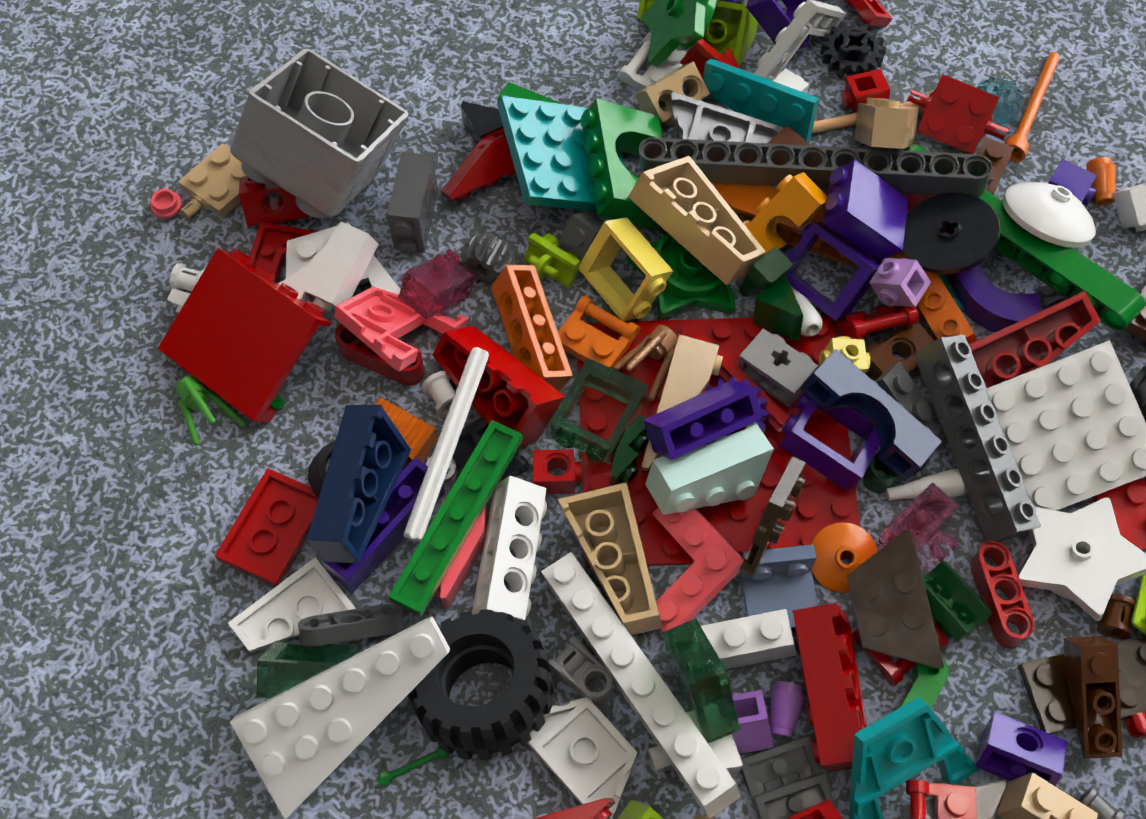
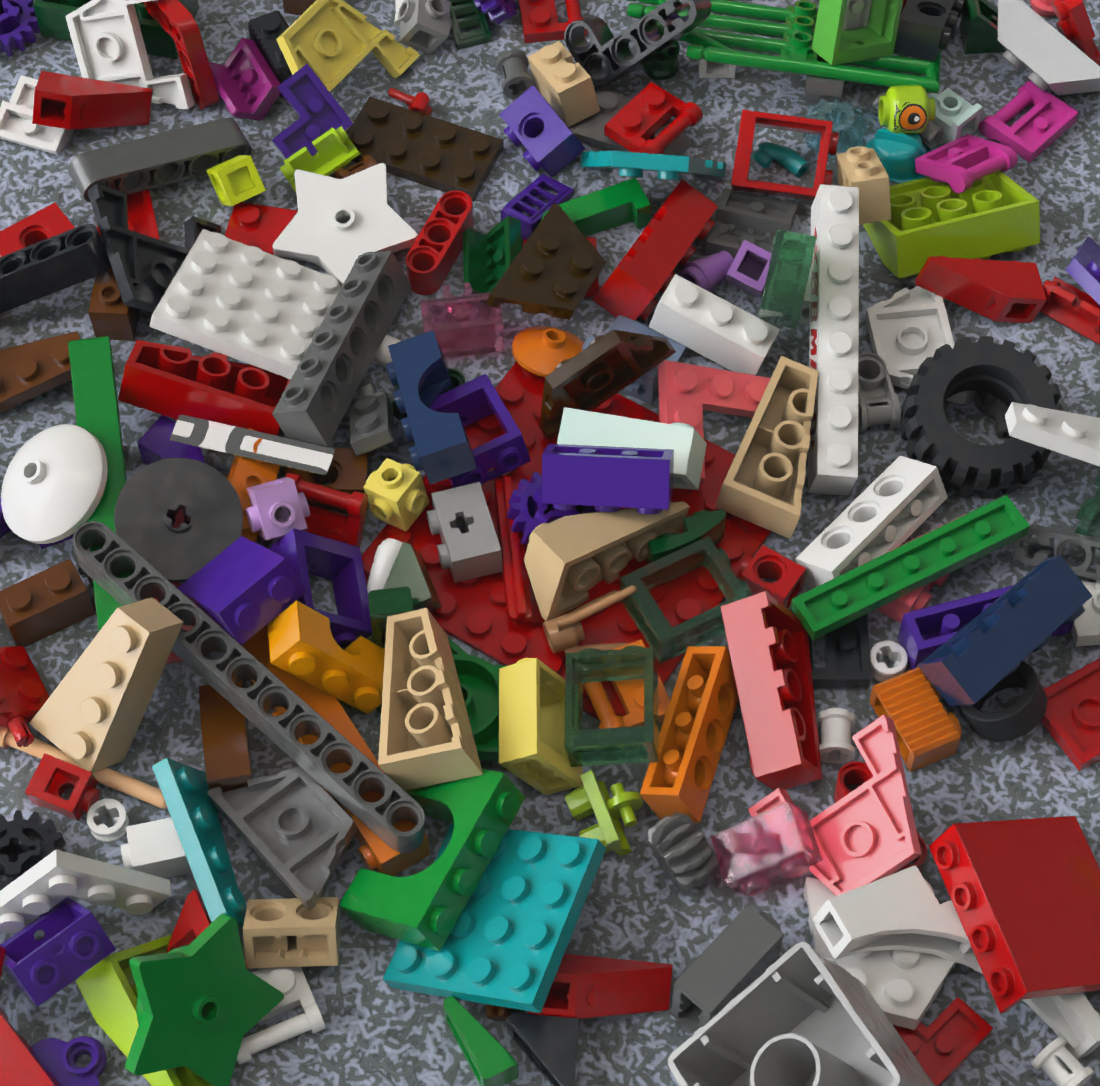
camera: 145 degrees left, 5 degrees down
(446, 445) = (877, 630): white axle -> none
(573, 268) = (611, 744): none -> clear green window
(581, 232) = (549, 807): dark grey brick -> none
(832, 92) = (102, 832): none -> white bush
(970, 318) = (240, 442): none -> sticker
(977, 671) = (522, 201): none -> dark purple slope
(1095, 694) = (442, 127): reddish brown slope -> none

